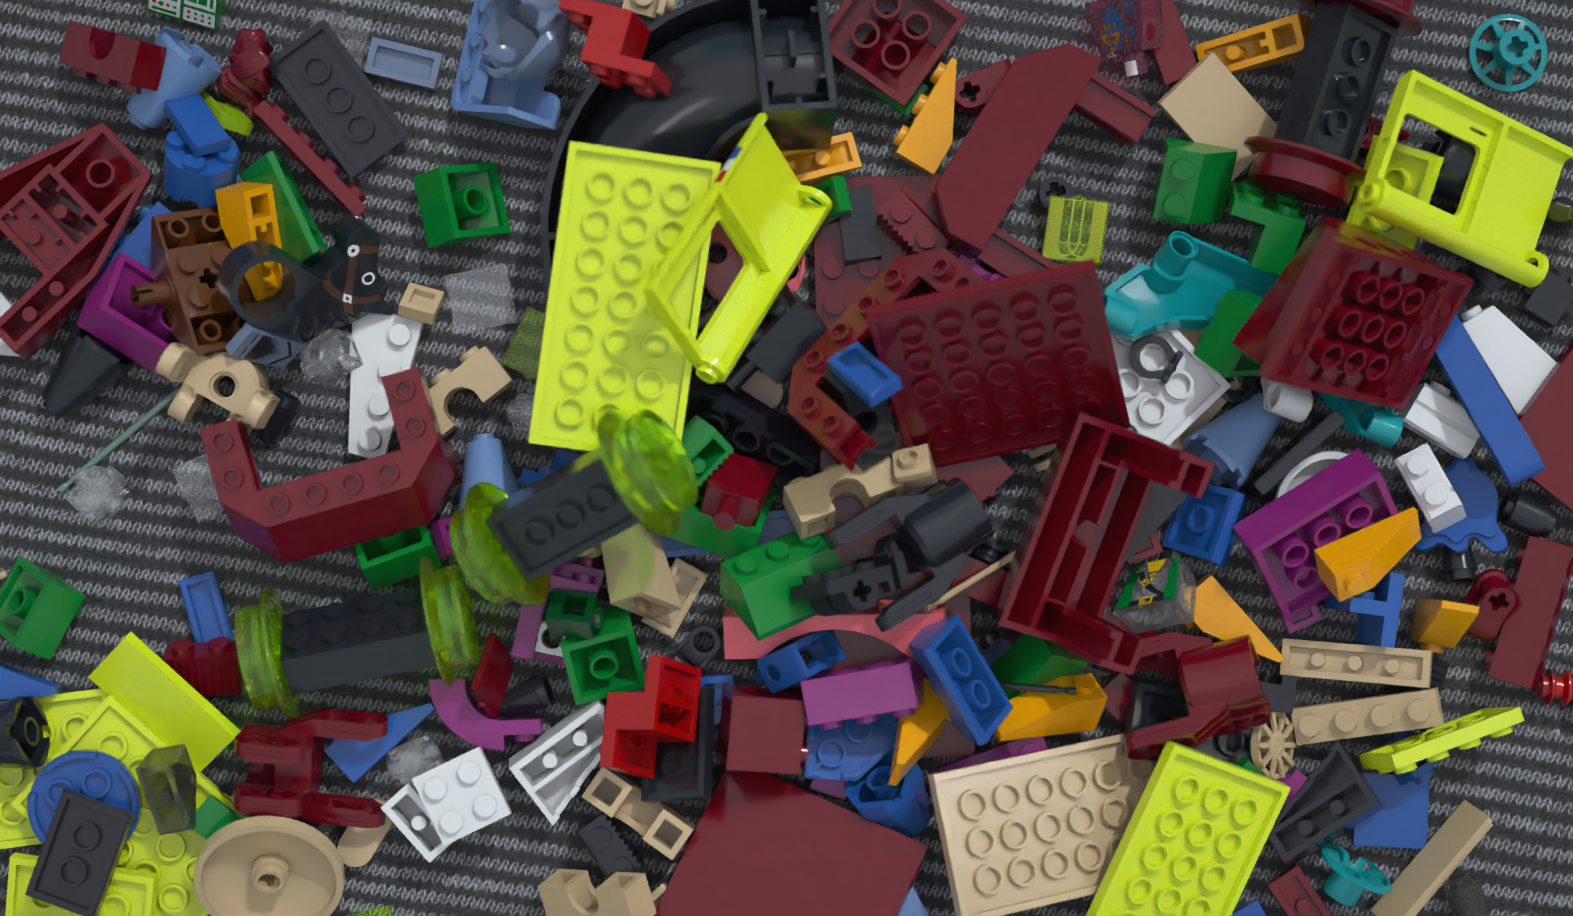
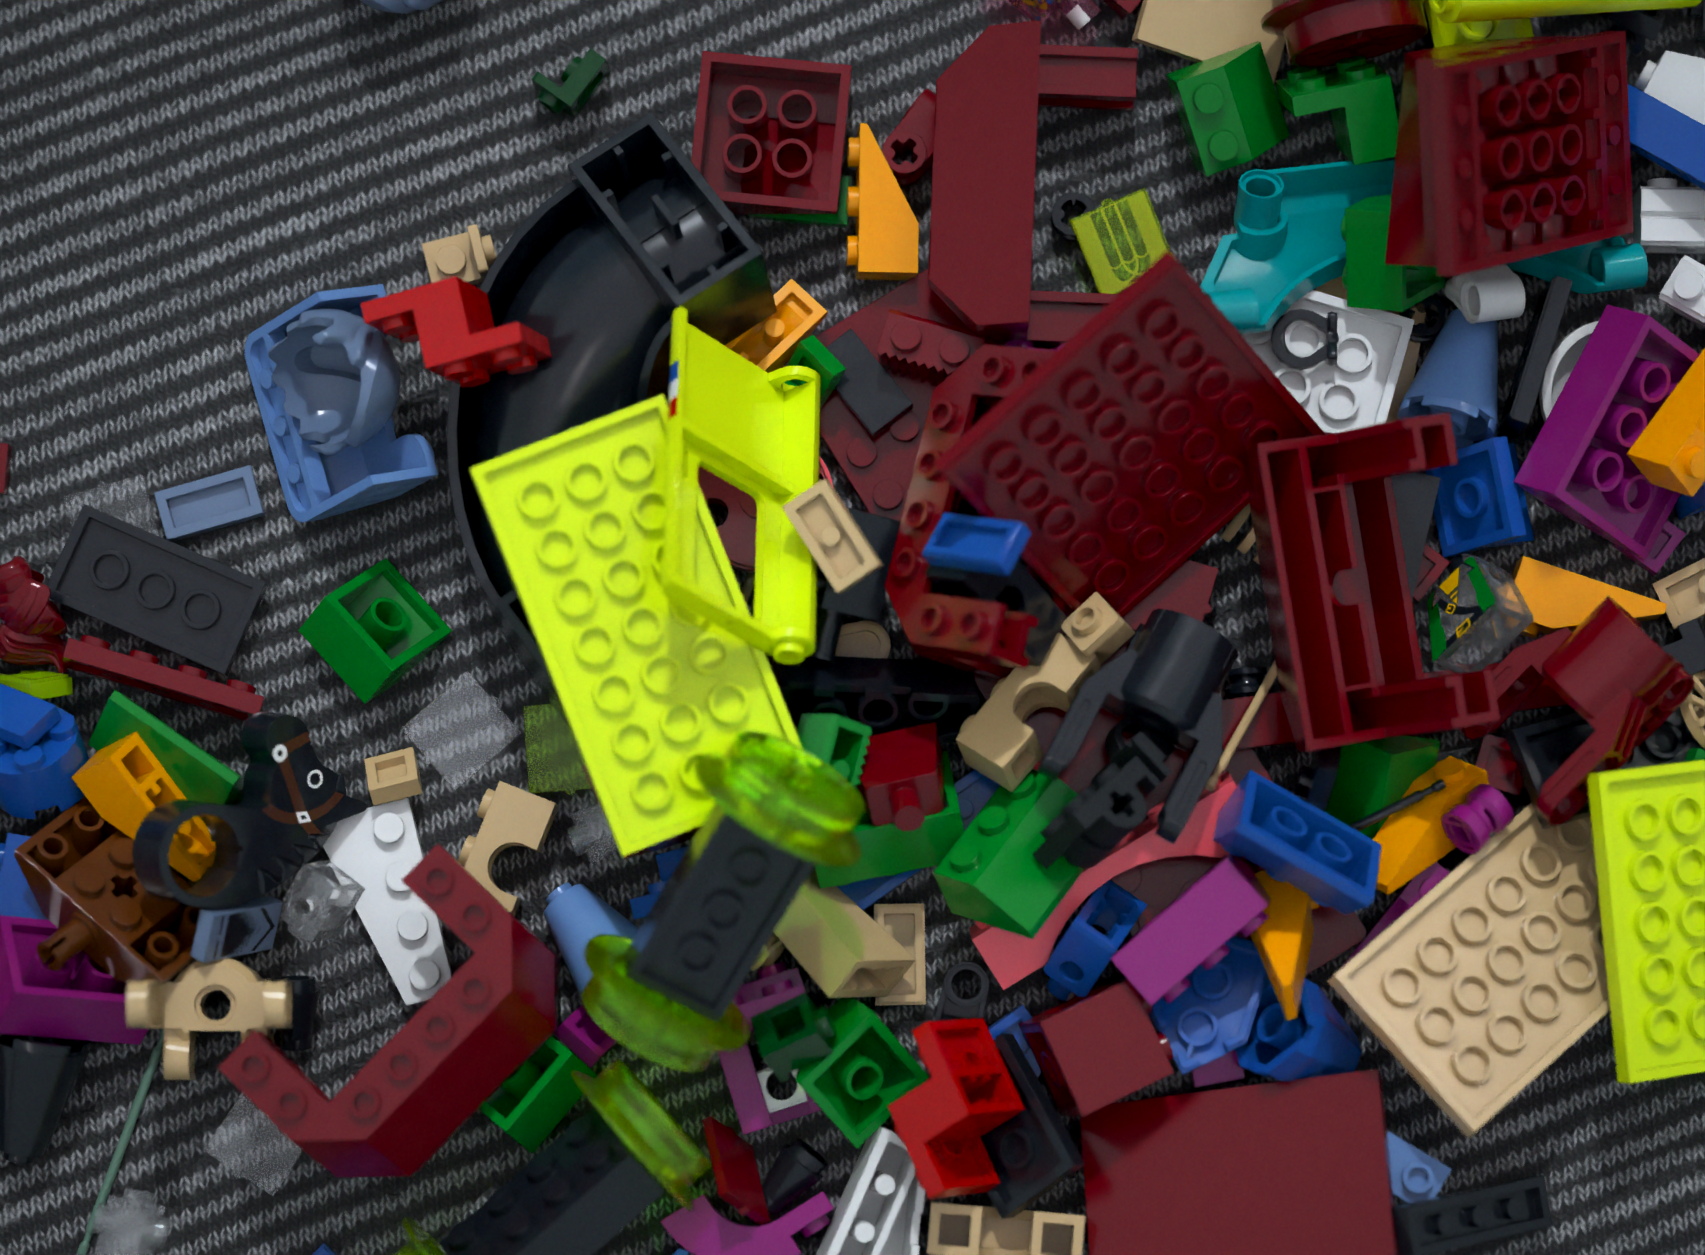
camera: 25 degrees left, 5 degrees down
(777, 315) = (832, 536): none -> tan plate
(1083, 725) = (1482, 814): none -> magenta wheel

